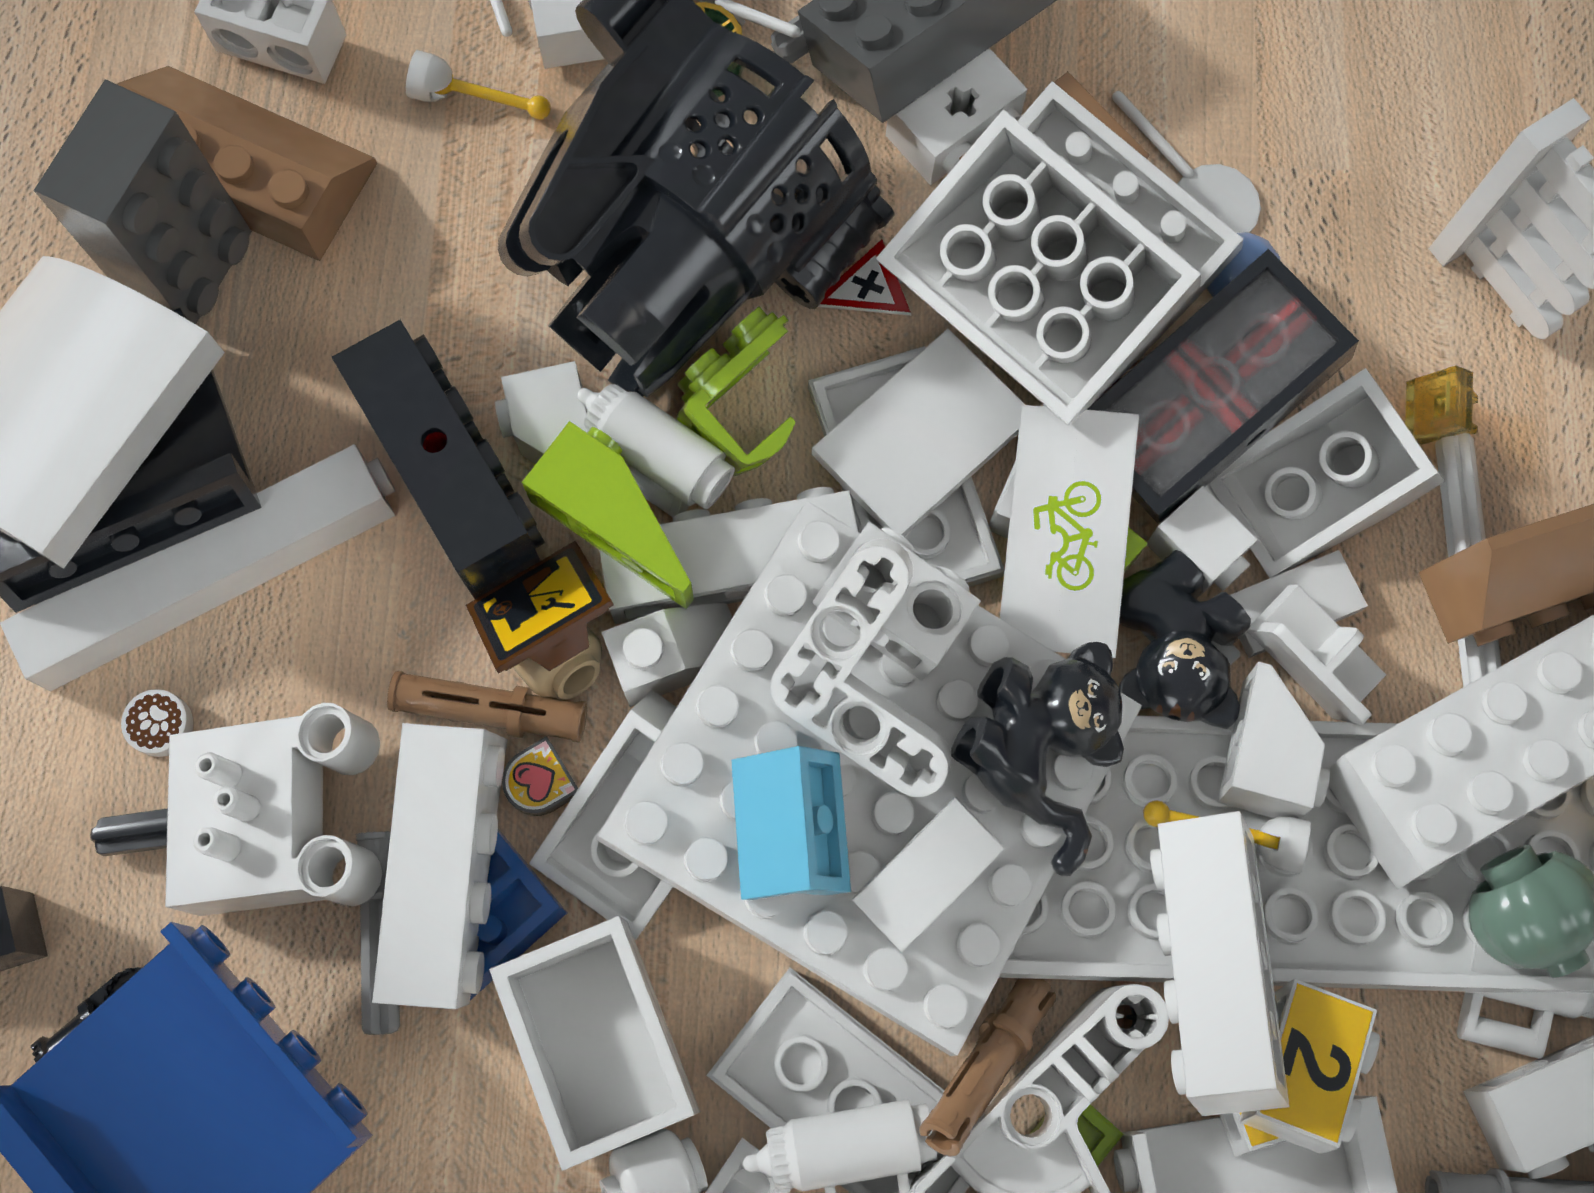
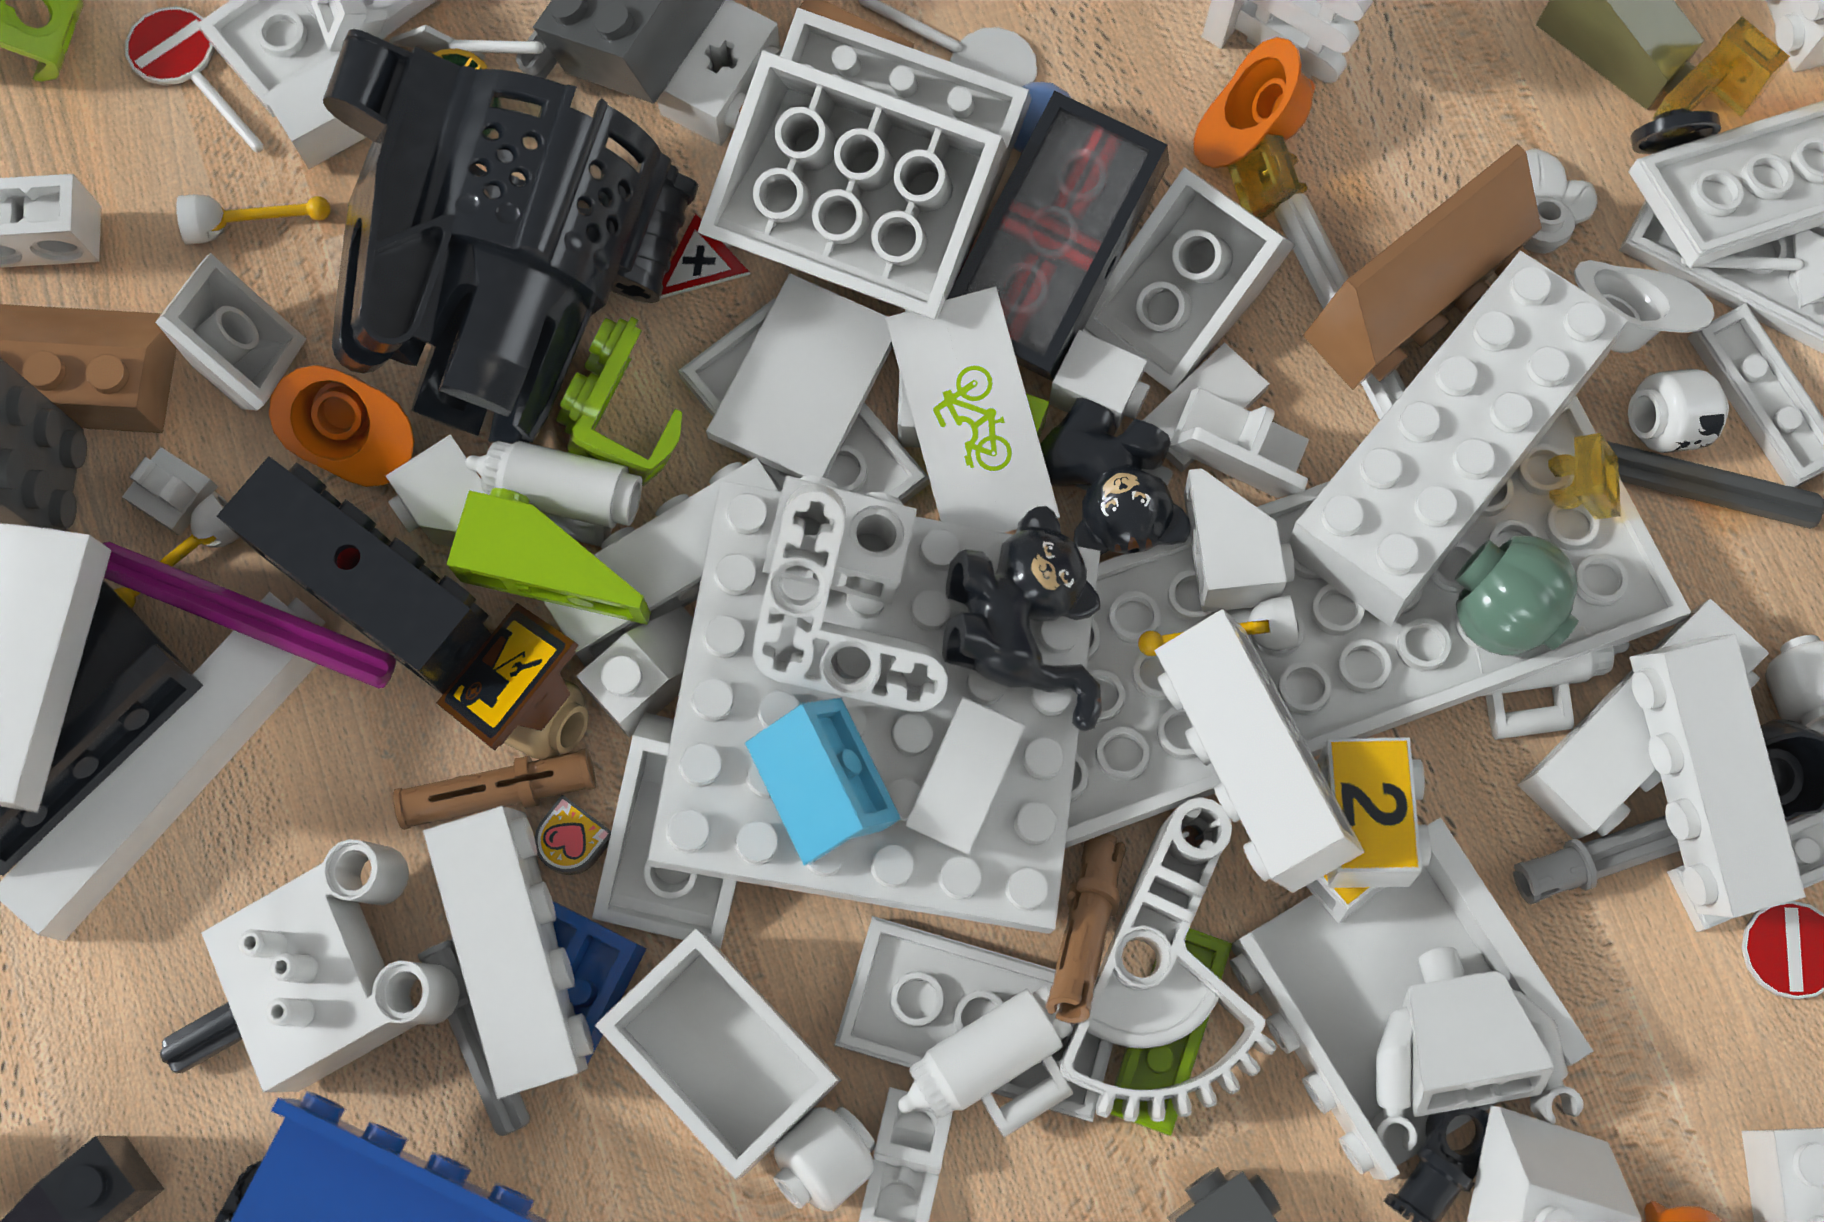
camera: 20 degrees left, 0 degrees up
(152, 719) = (176, 928): tile -> none
(304, 315) = (168, 490): none -> white tile
(319, 365) = (205, 529): none -> white hinge
(326, 460) = (249, 617): none -> magenta axle
(413, 193) = (230, 334): none -> white slope
(480, 314) = (341, 424): none -> orange piece
(1466, 329) = (1260, 100): none -> orange piece

